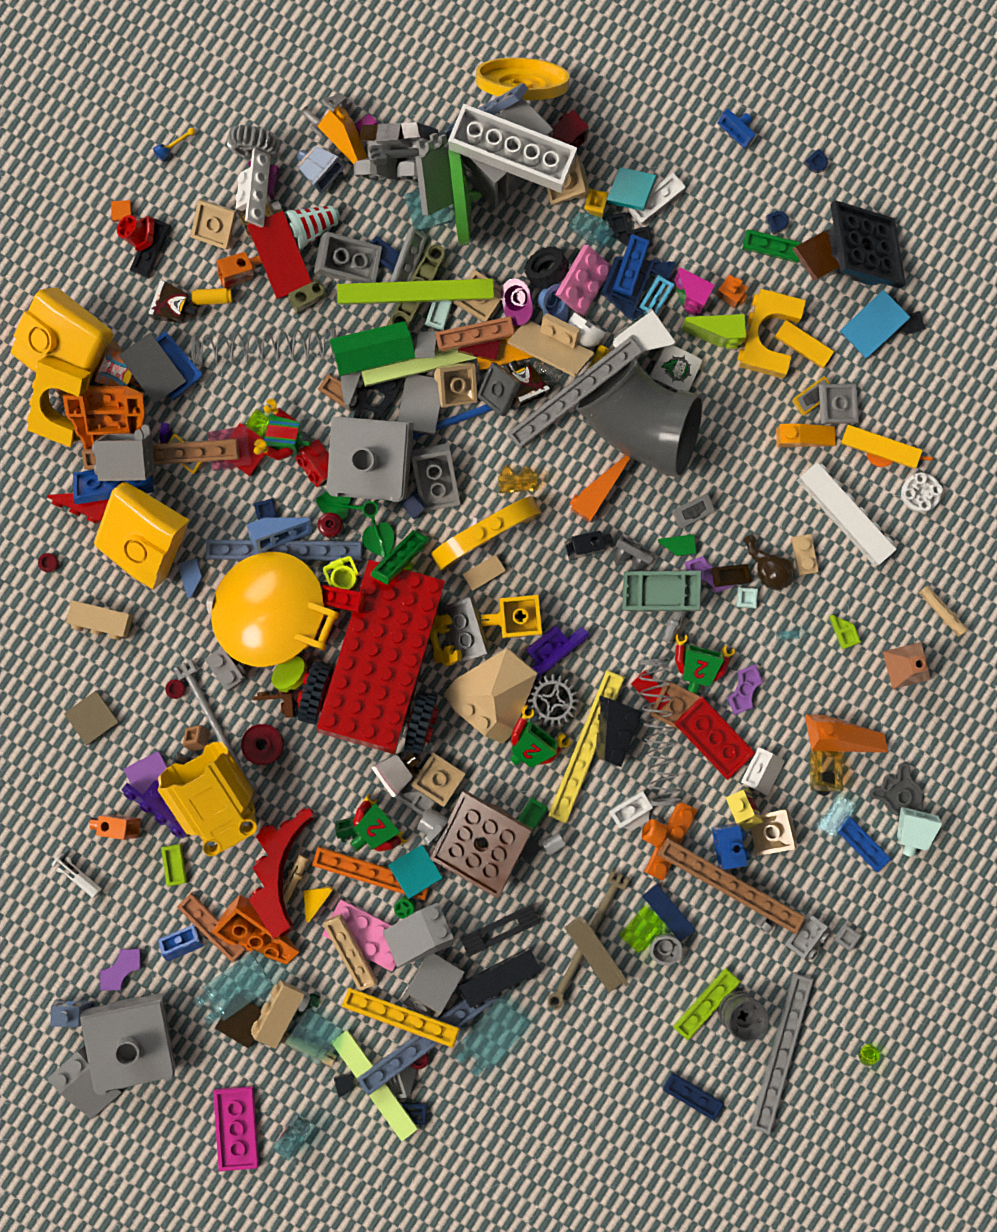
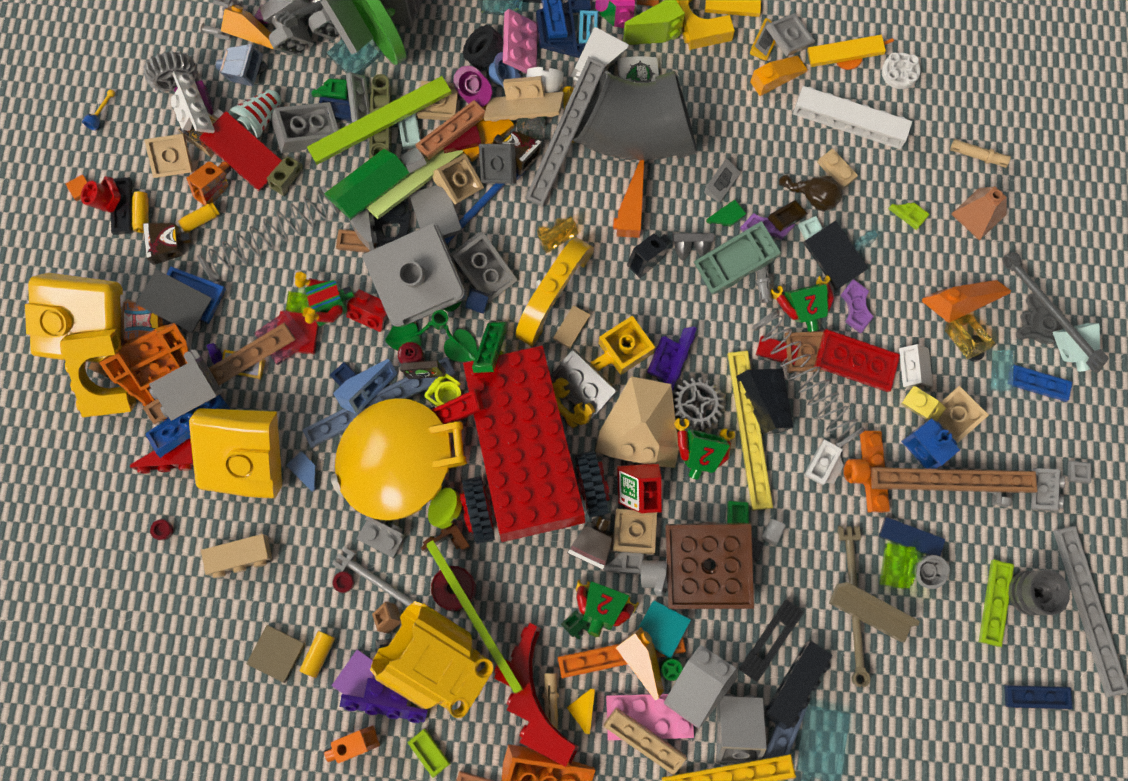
camera: 30 degrees left, 10 degrees down
(124, 737) = (317, 654): none -> yellow piece
(163, 263) = (140, 211): none -> yellow piece
(264, 774) = (474, 617): none -> lime tile
(333, 545) = (423, 369): none -> dark brown tile
(384, 884) = (642, 658): none -> slope
(391, 233) = (332, 89): none -> green tile
(461, 747) = (640, 487): none -> red slope
(753, 634) = (835, 255): none -> black tile
(914, 854) = (1096, 358): none -> dark grey hinge

